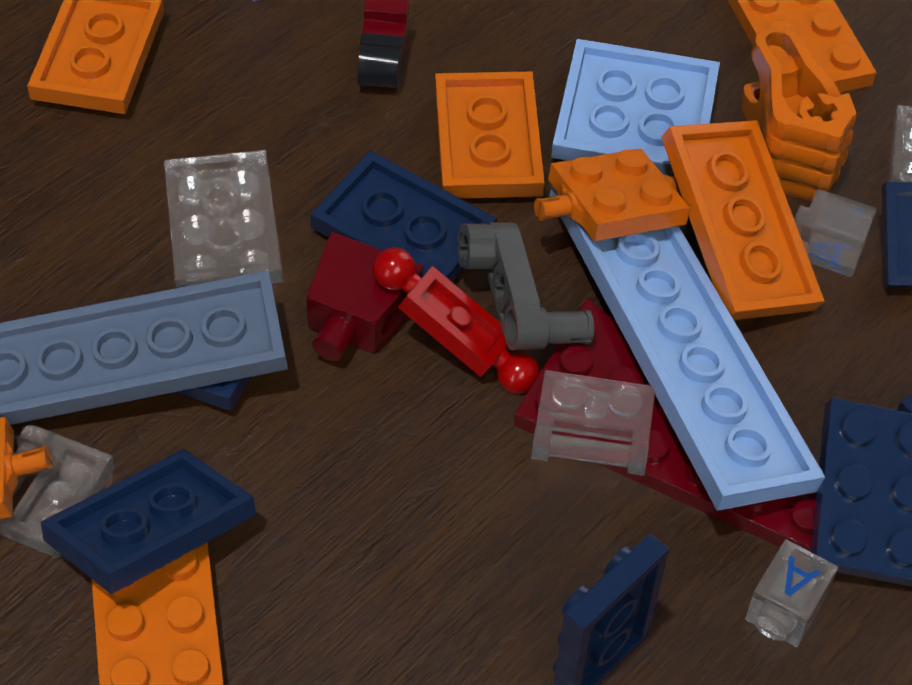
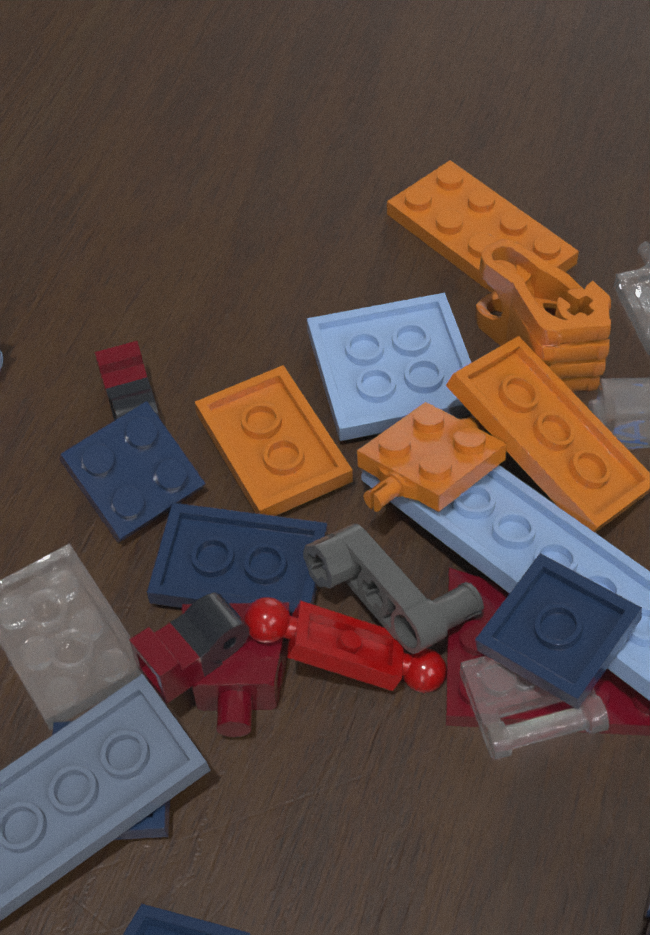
camera: 20 degrees left, 0 degrees up
(318, 262) = (189, 645): none -> leg
(349, 111) = (132, 471): none -> dark blue plate
(638, 370) = (559, 630): none -> dark blue plate

